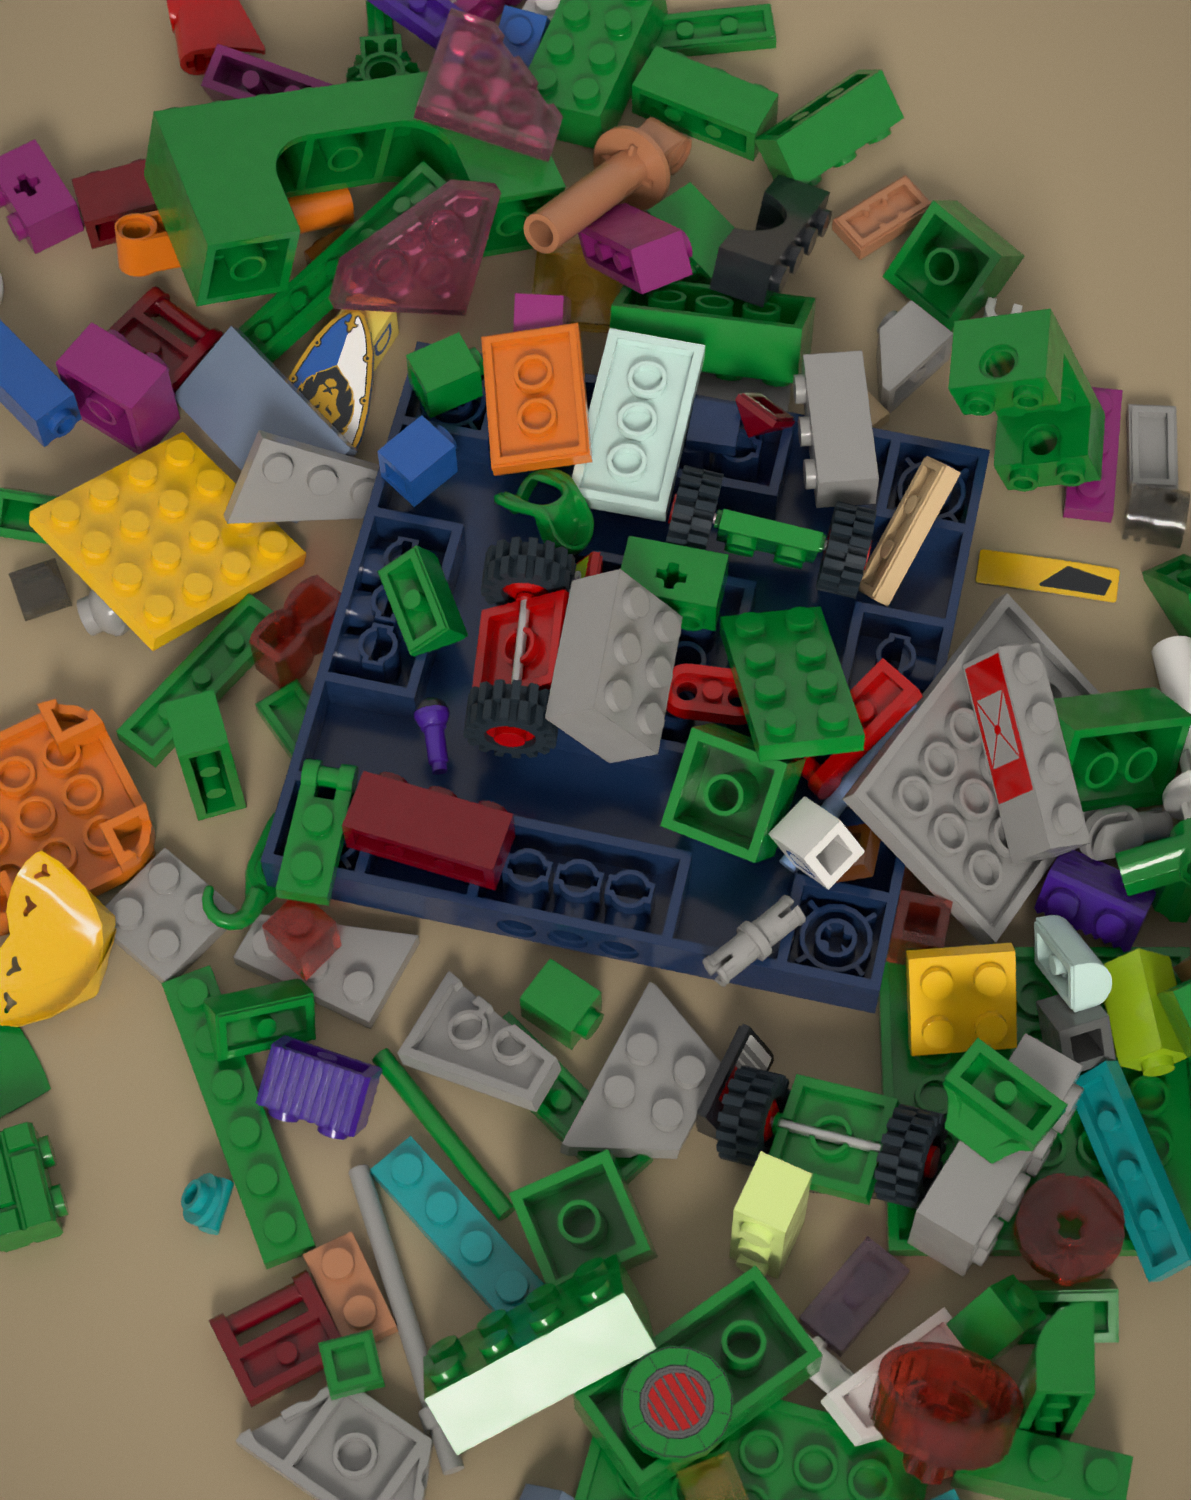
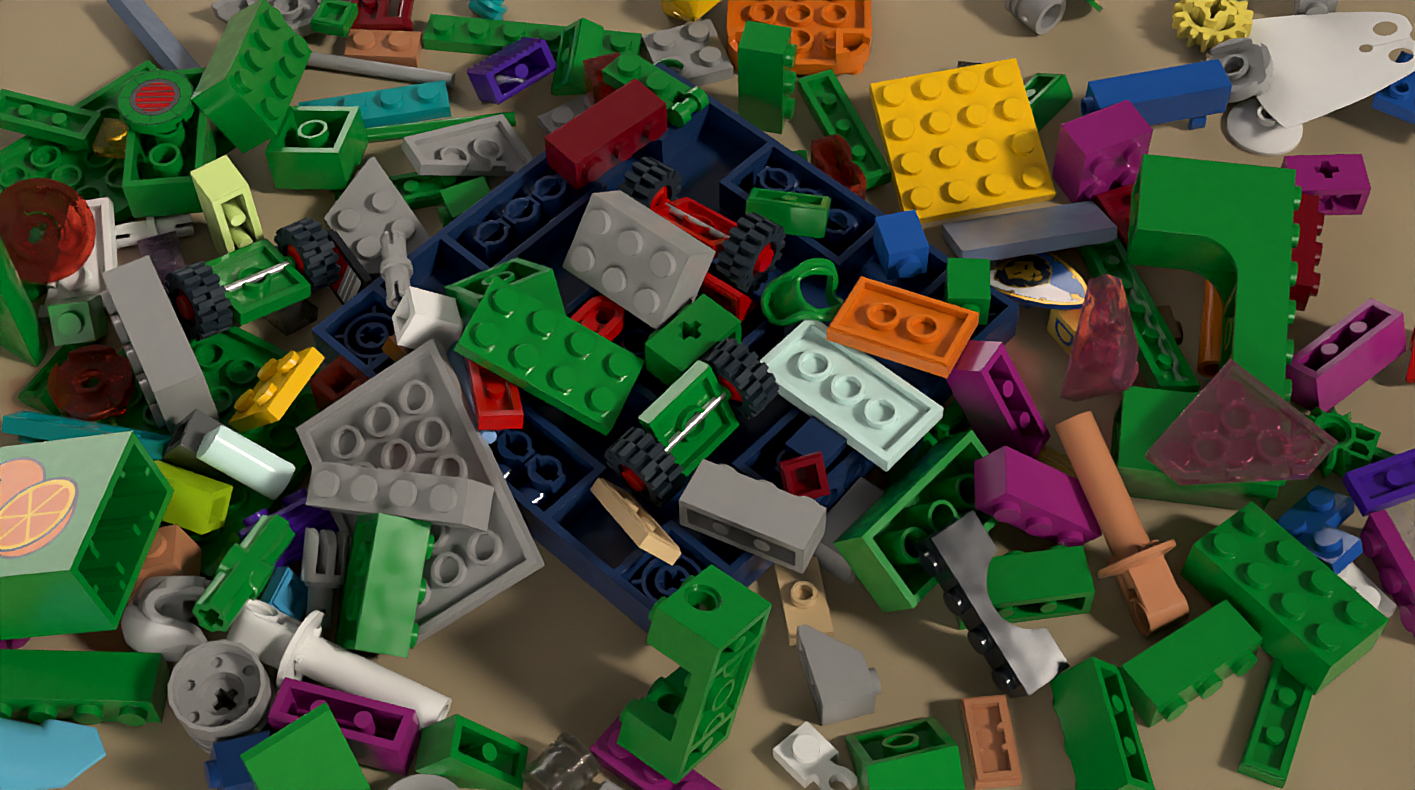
camera: 120 degrees right, 10 degrees down
(299, 483) = (956, 208): light grey wing -> none
(432, 718) = (693, 175): dark purple piece -> none
(997, 1105) = (164, 322): green slope -> none
(1048, 575) = (574, 681): yellow sticker -> none

